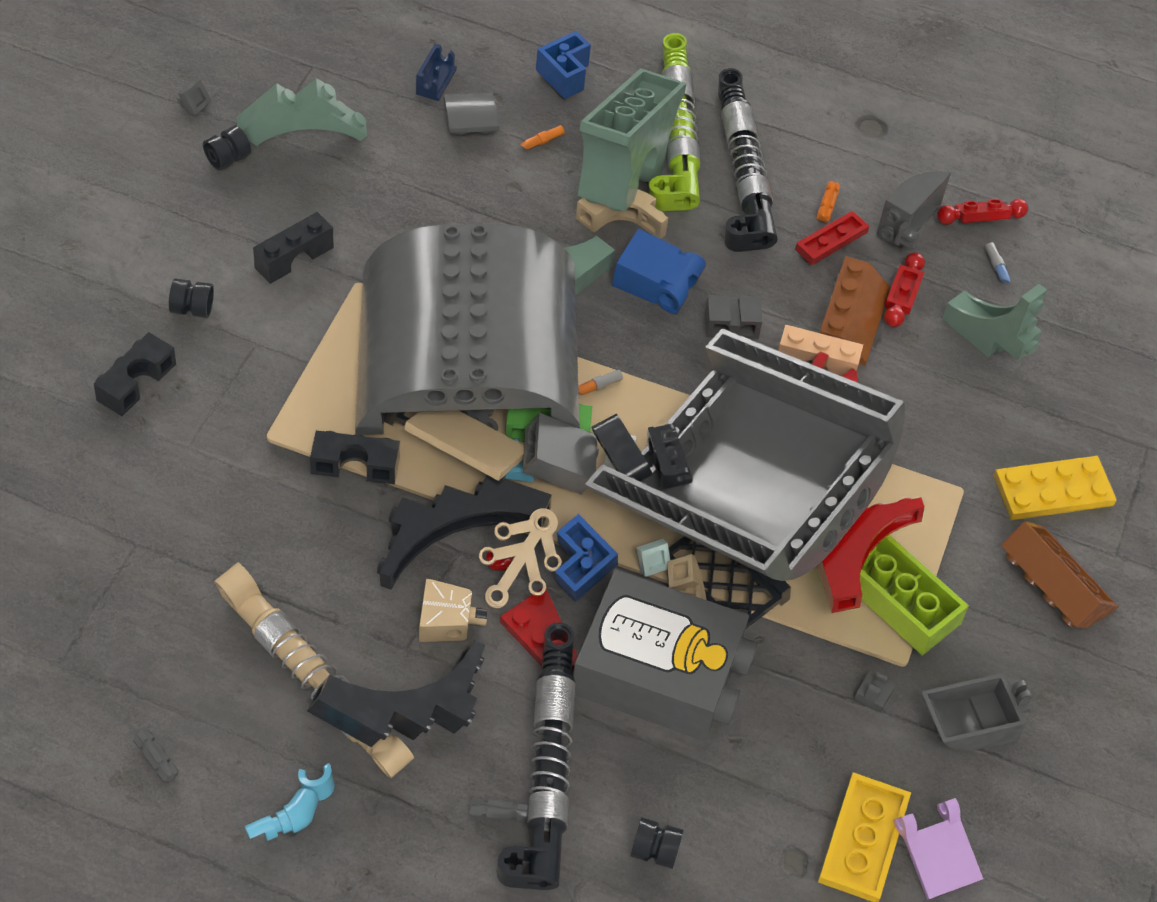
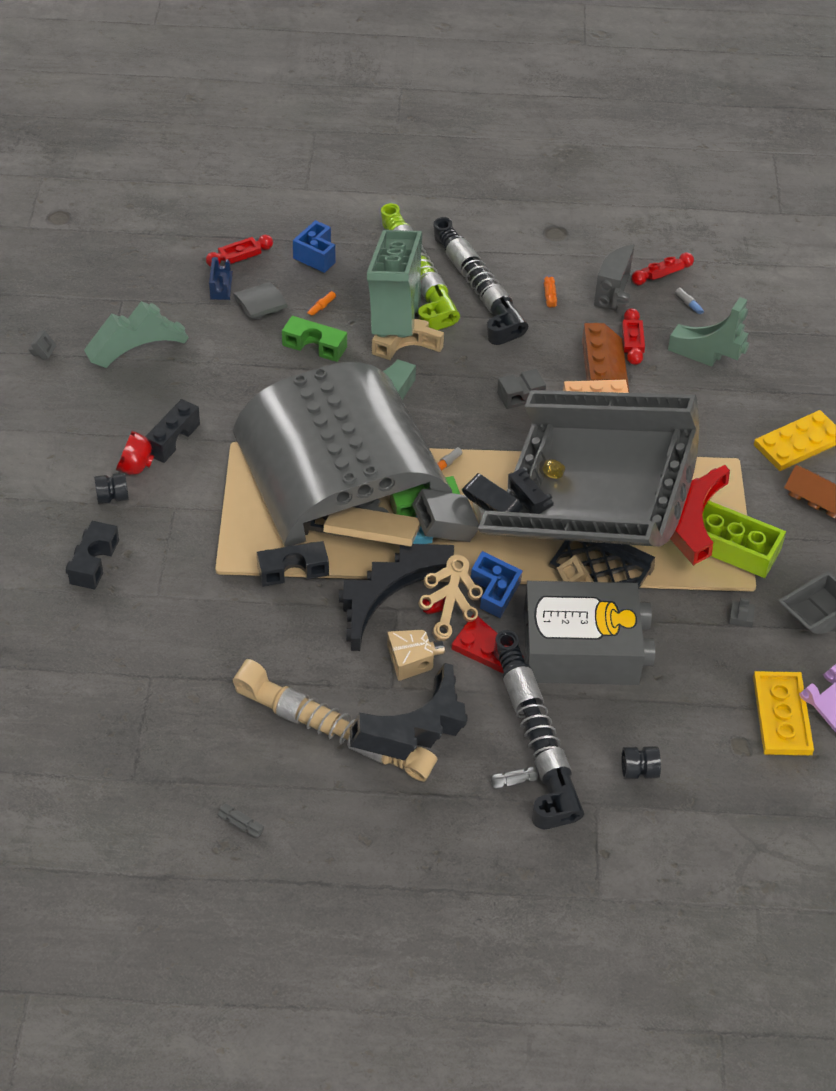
camera: 15 degrees left, 5 degrees down
(228, 147) = (86, 374): black wheel -> none
(236, 265) = (135, 455): none -> red cylinder
(300, 809) = (369, 823): medium azure piece -> none
(477, 42) = (241, 250): none -> red plate
(499, 167) = (301, 332): none -> bright green arch
(653, 557) = (545, 567): light aqua tile -> none
(657, 271) = (452, 372): blue piece -> none
(714, 435) = (553, 469): none -> clear yellow tile
(832, 238) = (565, 315): red plate -> none

